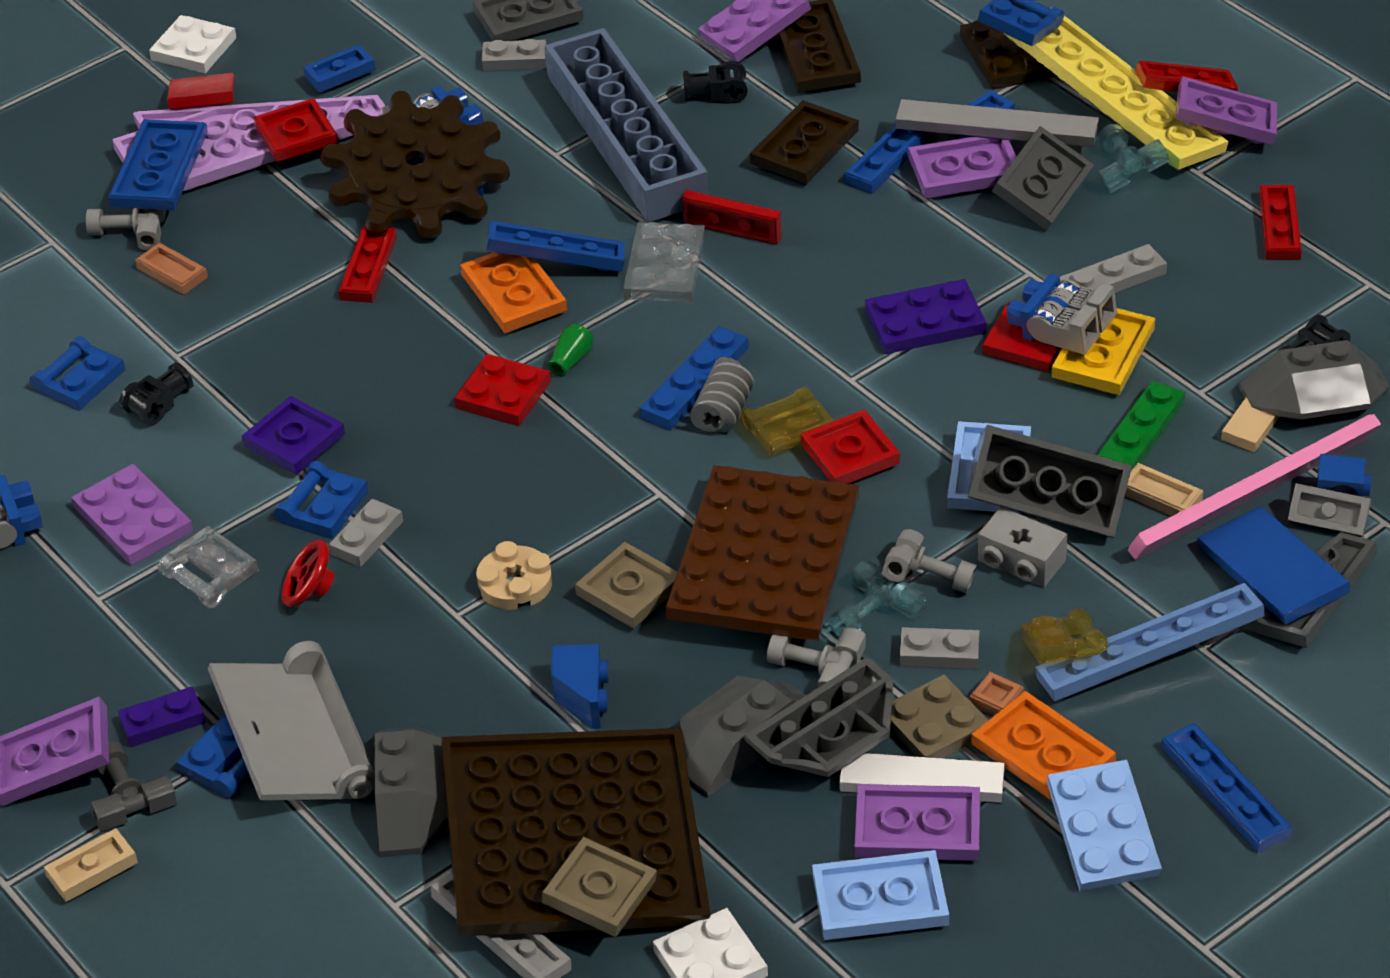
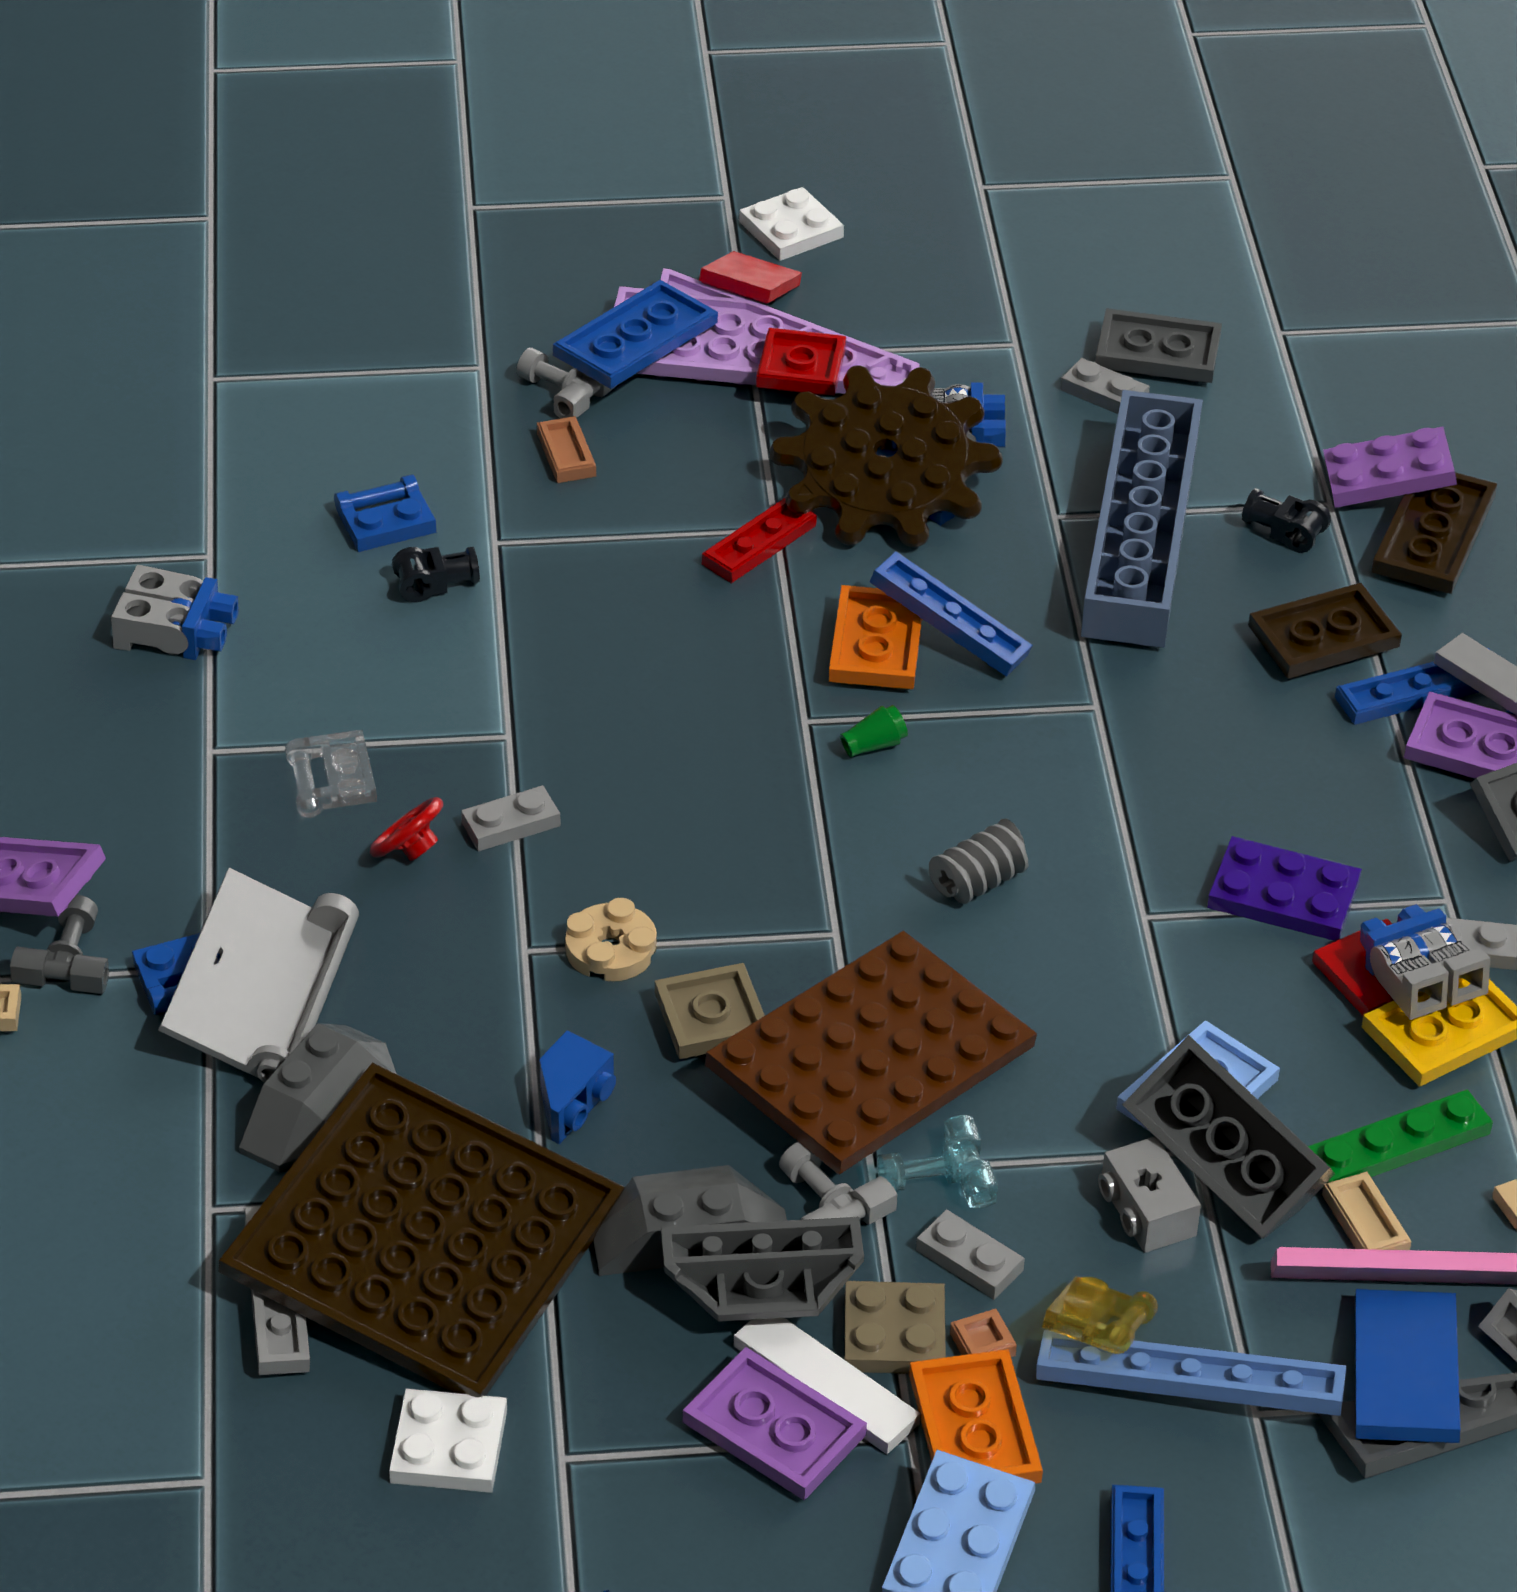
camera: 30 degrees right, 0 degrees up
(132, 514) = (311, 682): medium lavender plate -> none
(161, 716) = (162, 899): dark purple plate -> none
(293, 435) = (526, 680): dark purple plate -> none
(330, 506) = (502, 772): blue plate -> none
(339, 68) = (910, 317): blue plate -> none
(502, 389) = (774, 740): red plate -> none
(599, 886) = (384, 1300): dark tan plate -> none
(664, 262) = (1060, 688): clear plate -> none
(683, 387) = (1030, 811): blue plate -> none
(732, 217) = (1169, 674): red tile -> none
(782, 422) = (1029, 926): clear yellow plate -> none
(850, 448) = (1068, 989): red plate -> none
(880, 895) = (667, 1475): light blue plate -> none
(910, 555) = (1020, 1142): light grey bar -> none

